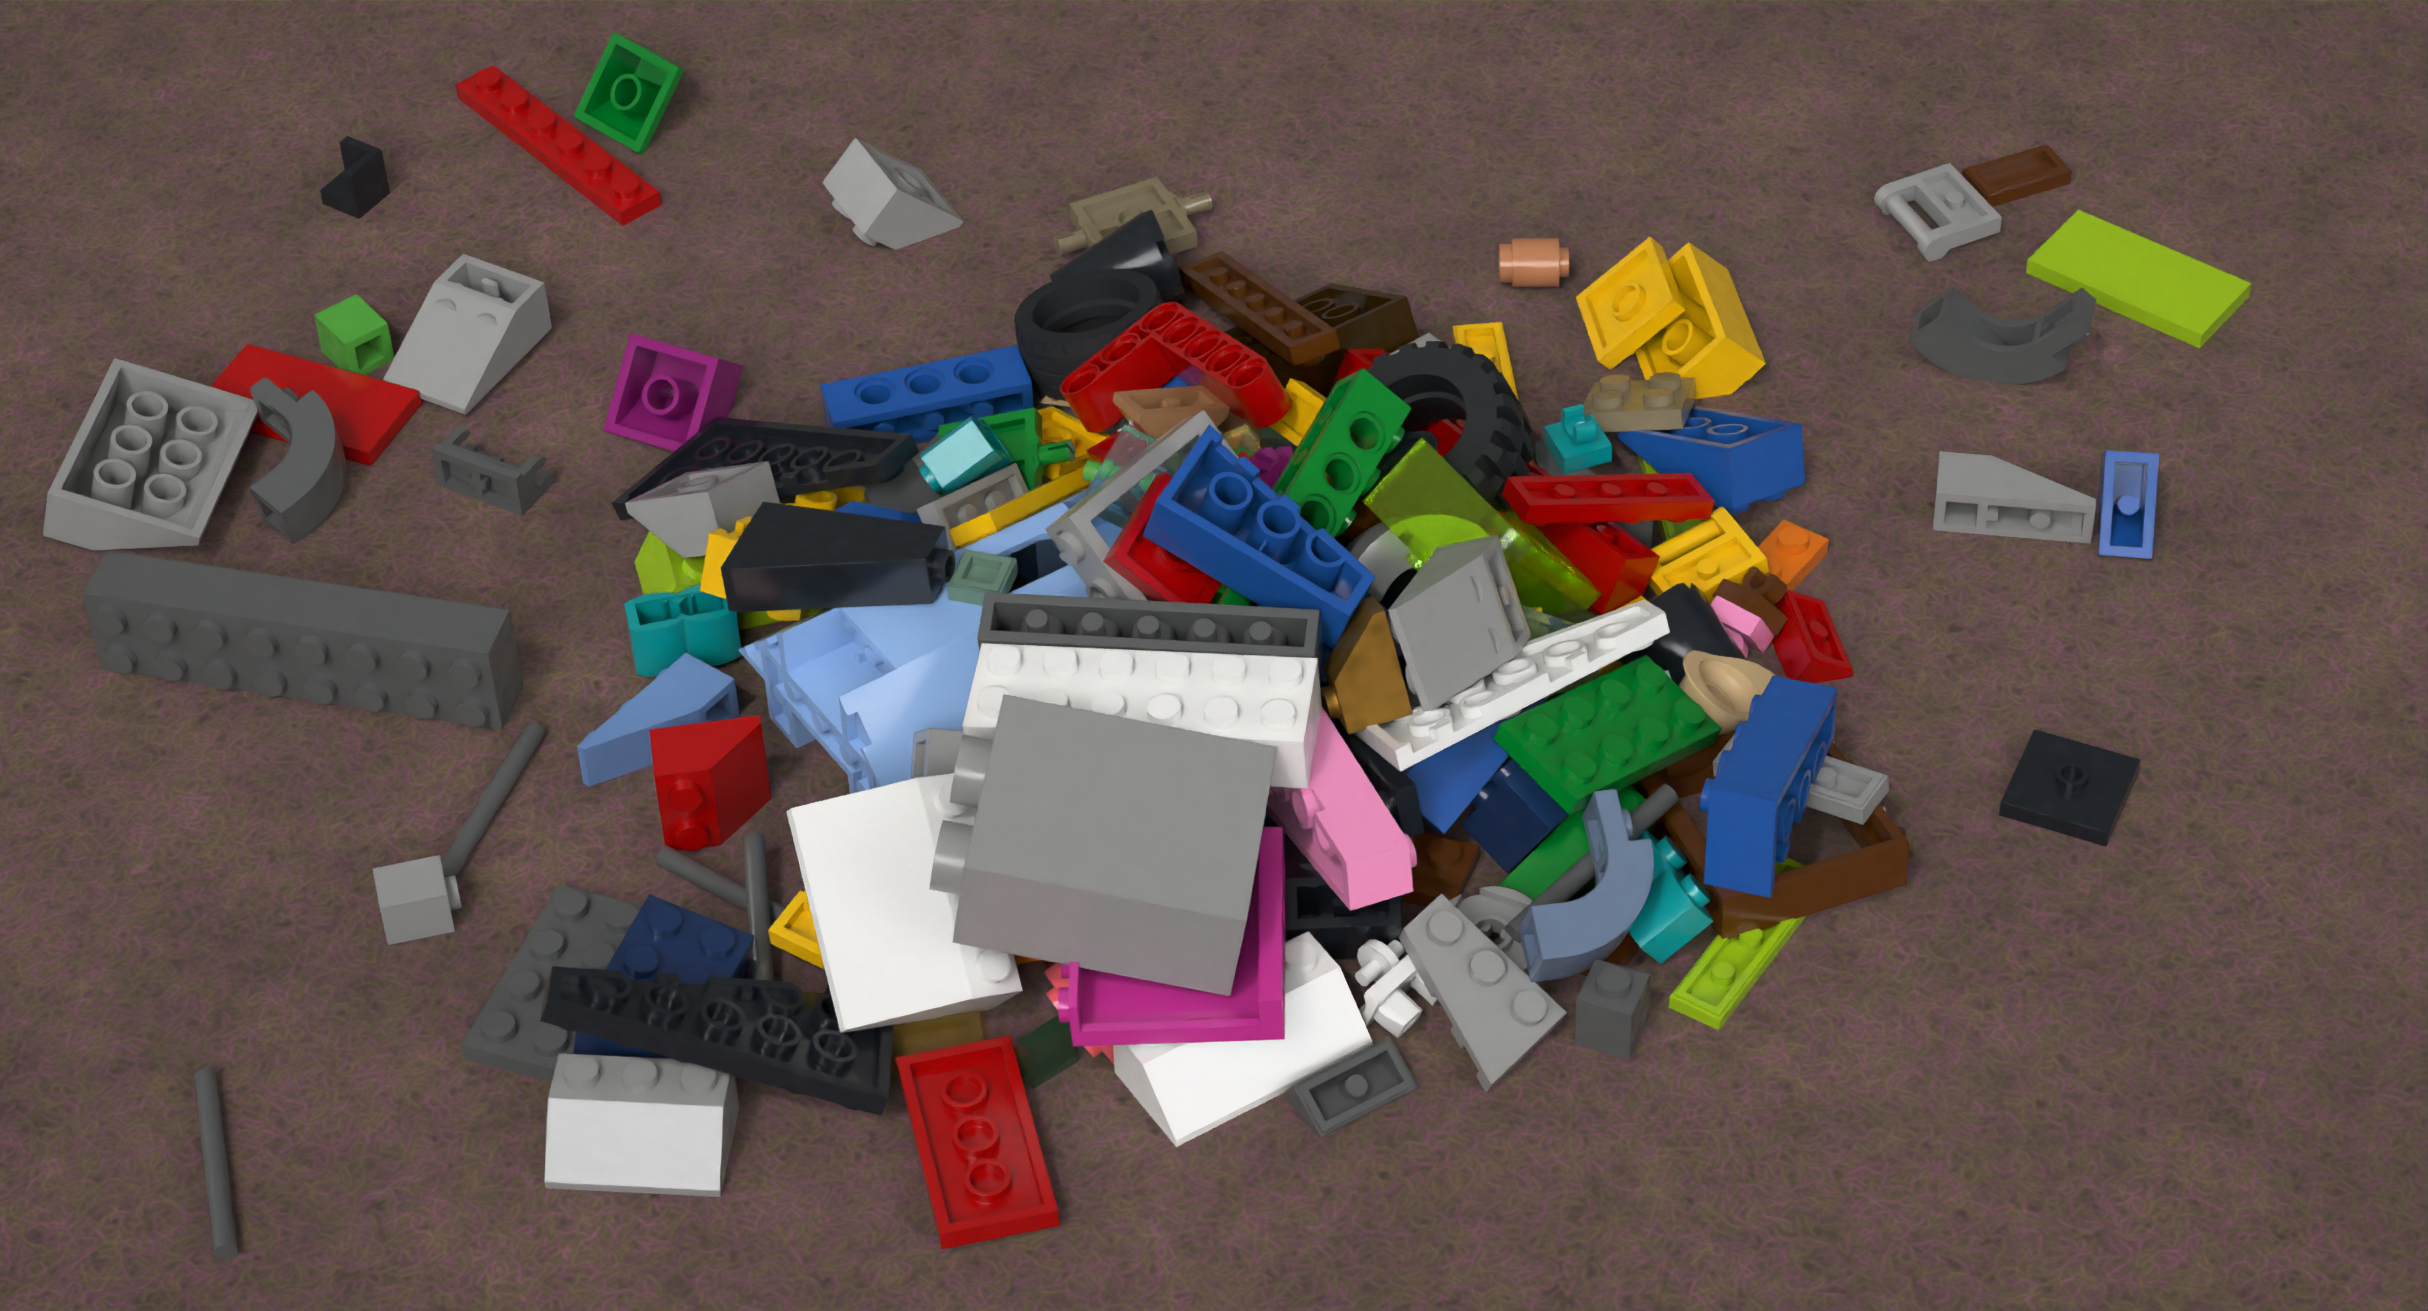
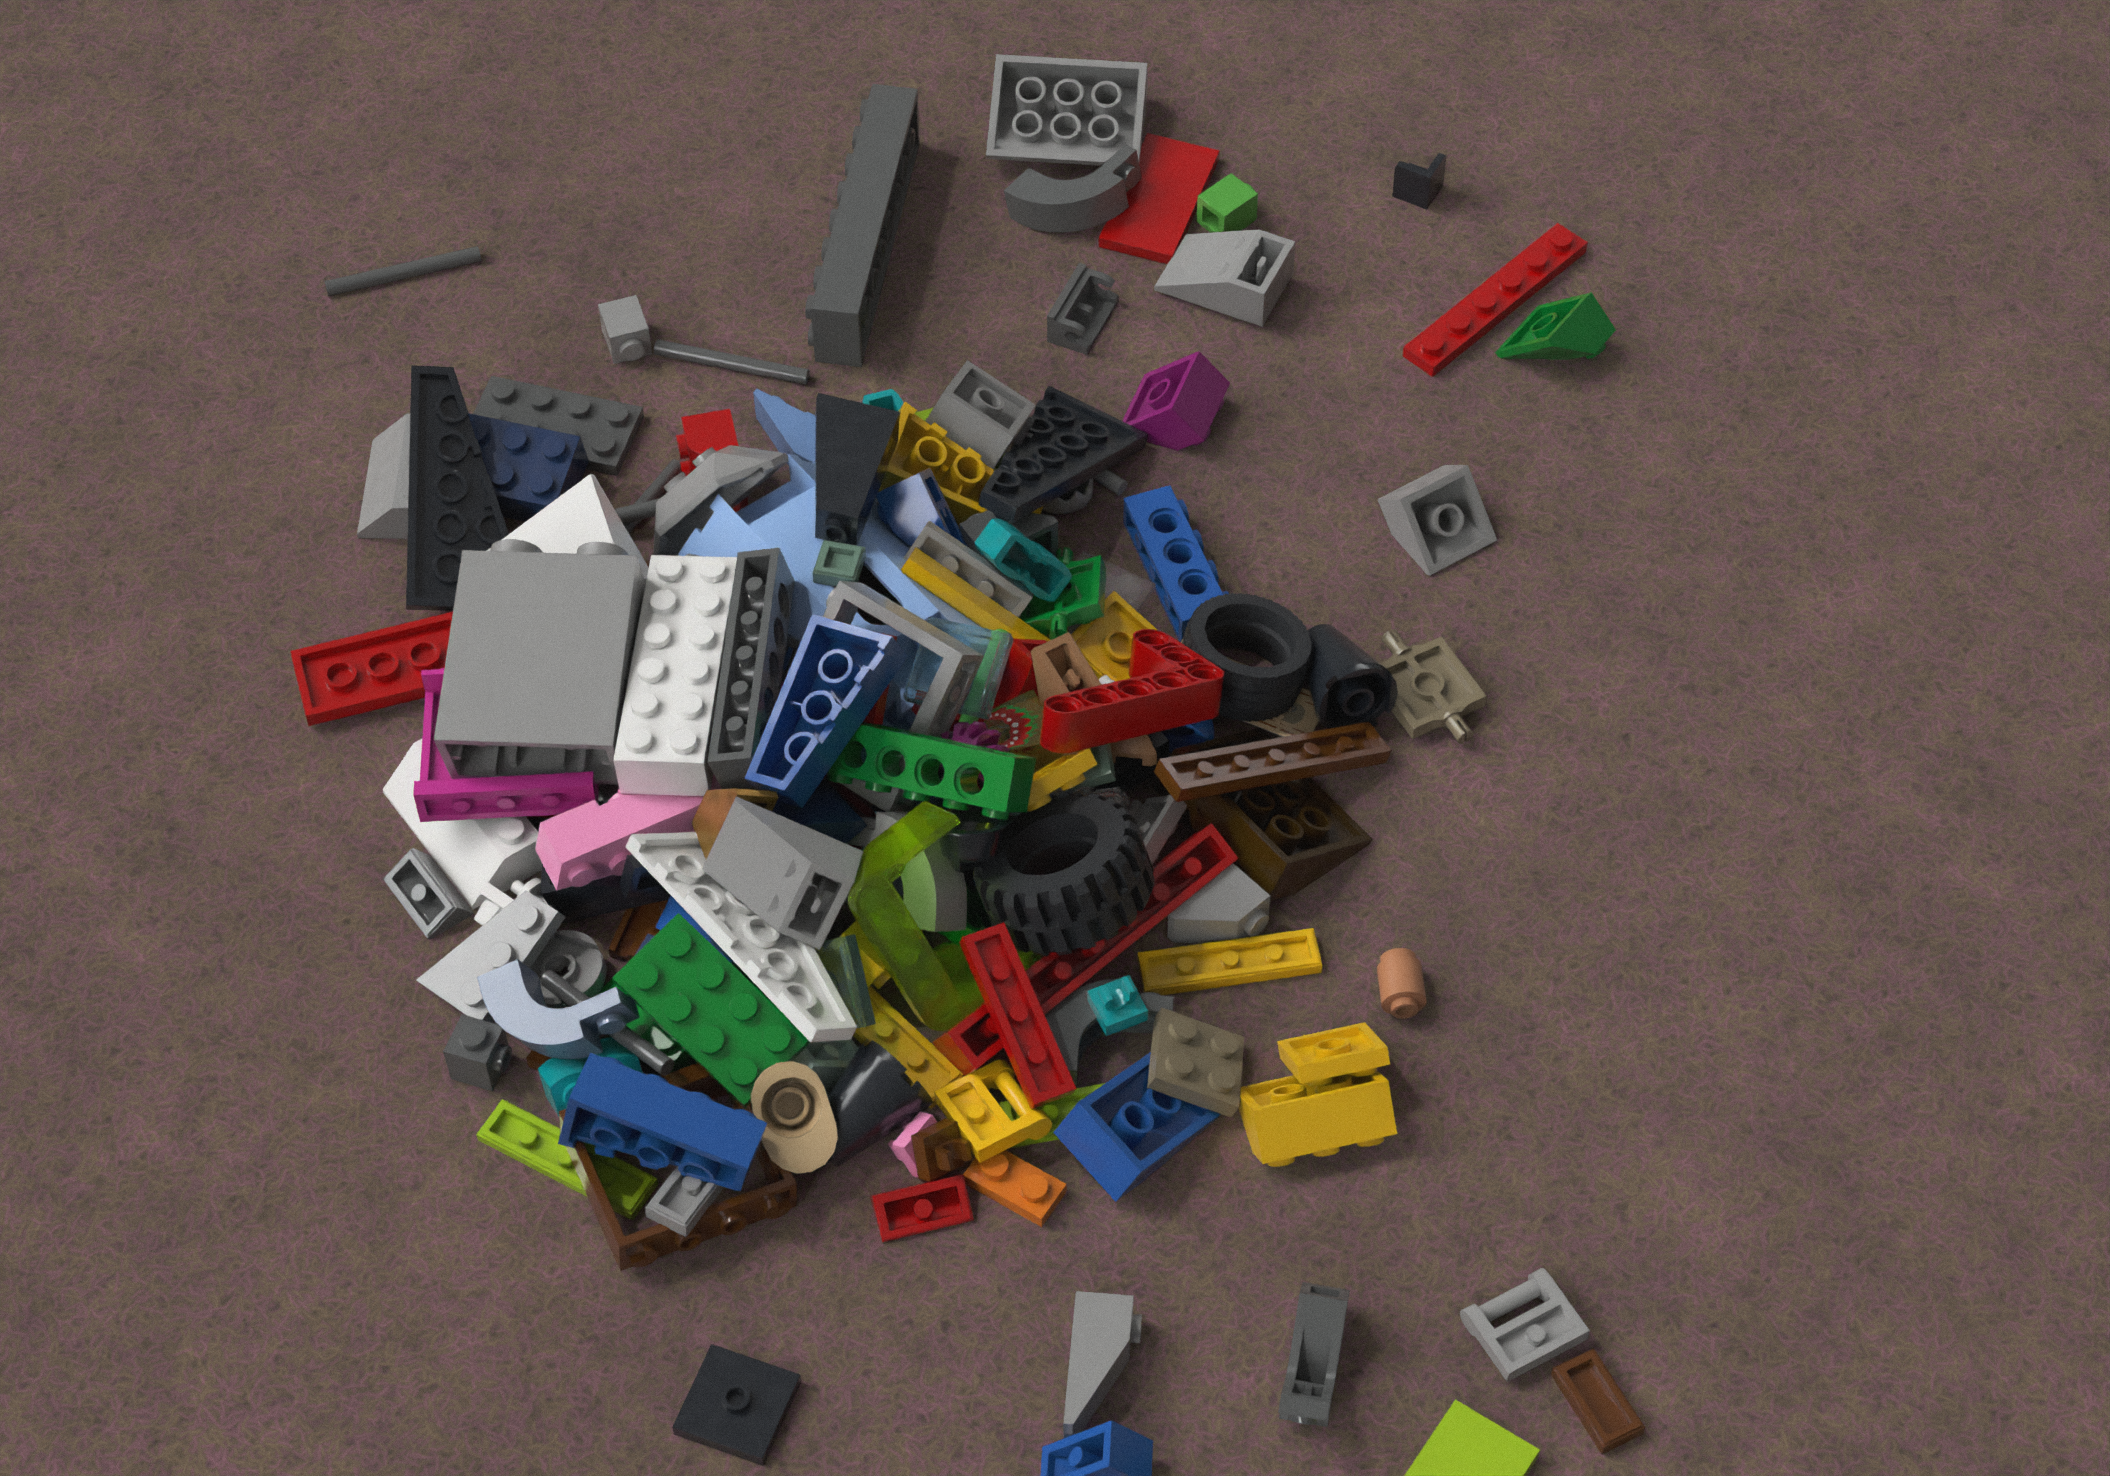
camera: 85 degrees right, 10 degrees up
(794, 735) = (727, 472): none -> light grey wedge

